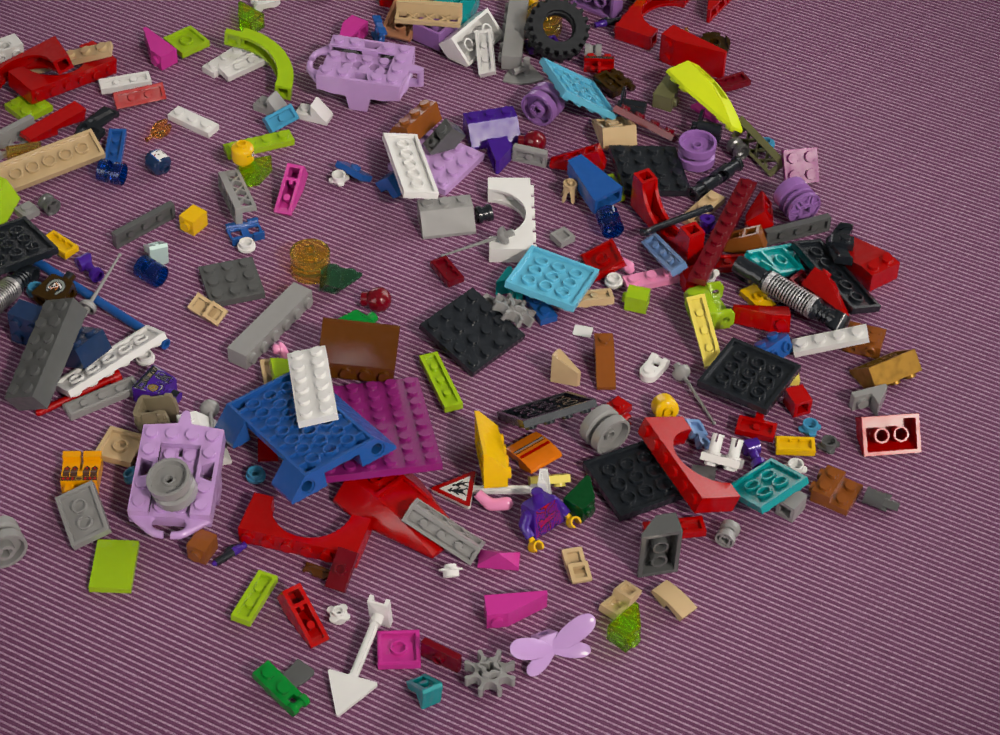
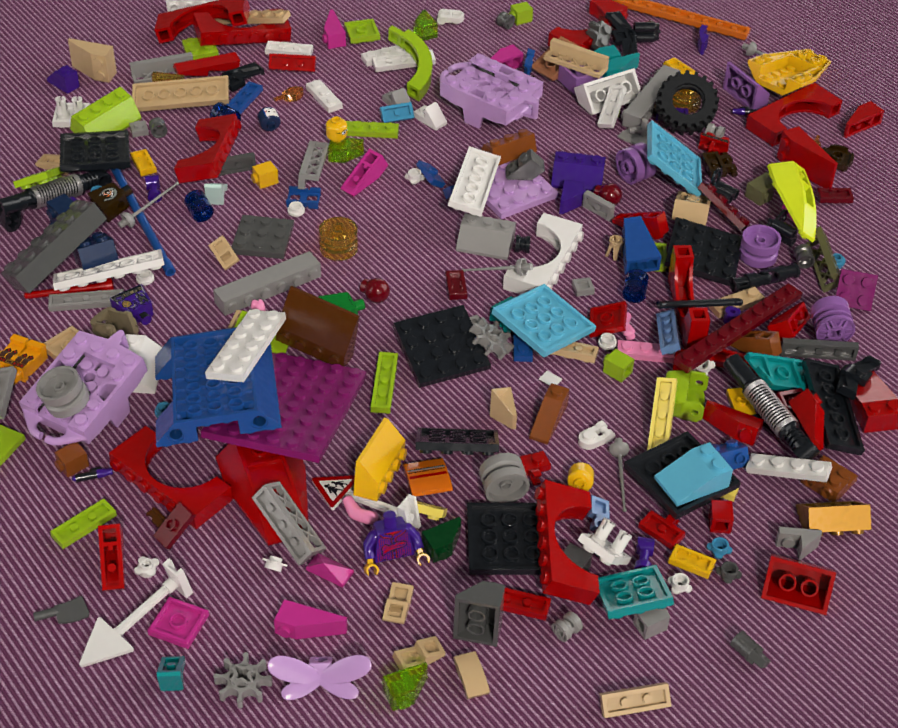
camera: 25 degrees right, 0 degrees up
(139, 224) = (210, 162): none -> red arch
(211, 409) = (161, 338): light grey sword -> none
(280, 688) = (43, 617): green plate -> none
(335, 278) = (351, 261): clear green slope -> none
(441, 655) = (209, 643): dark red plate -> none
(764, 371) = (695, 475): none -> medium azure slope
(815, 571) = (635, 700): none -> tan plate
(834, 490) = (707, 622): dark orange plate -> none

